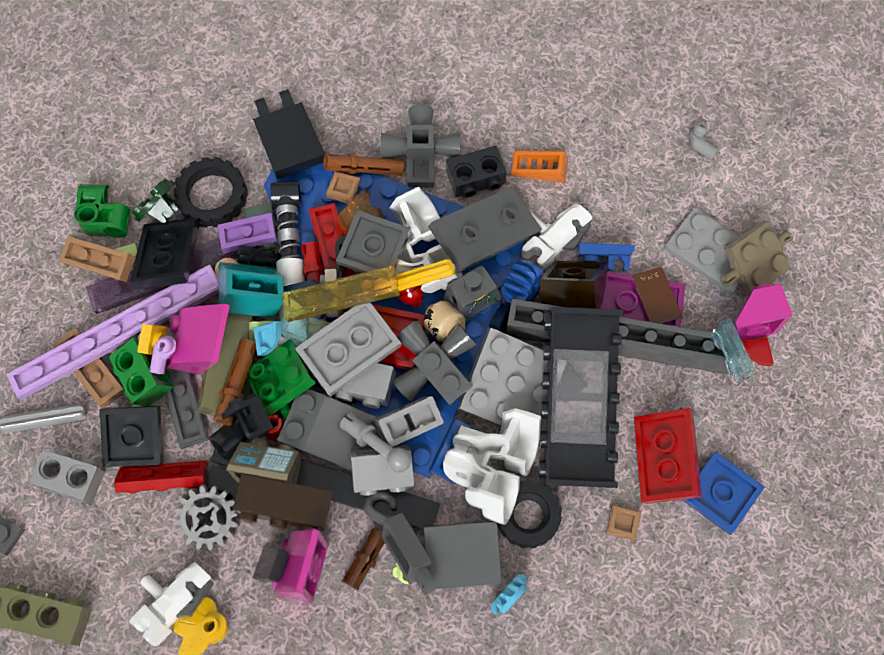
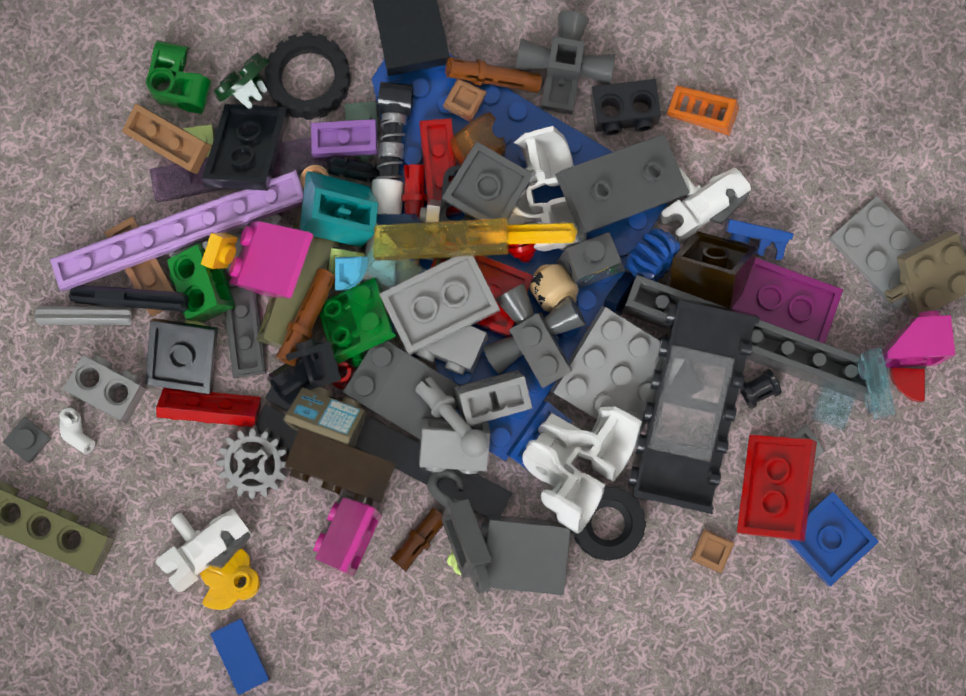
camera: 10 degrees right, 10 degrees up
(42, 519) = (72, 431): none -> white arm
(80, 394) = (129, 298): none -> black axle
(162, 351) = (229, 268): lavender arm -> none
(271, 565) = (315, 529): black tile -> none
(509, 595) = (570, 608): medium azure gear -> none
(634, 377) = (760, 388): none -> black bush
(656, 296) = (806, 298): reddish brown sticker -> none
(699, 141) = (901, 112): light grey arm -> none
(699, 383) = (833, 408): none -> clear light blue tile

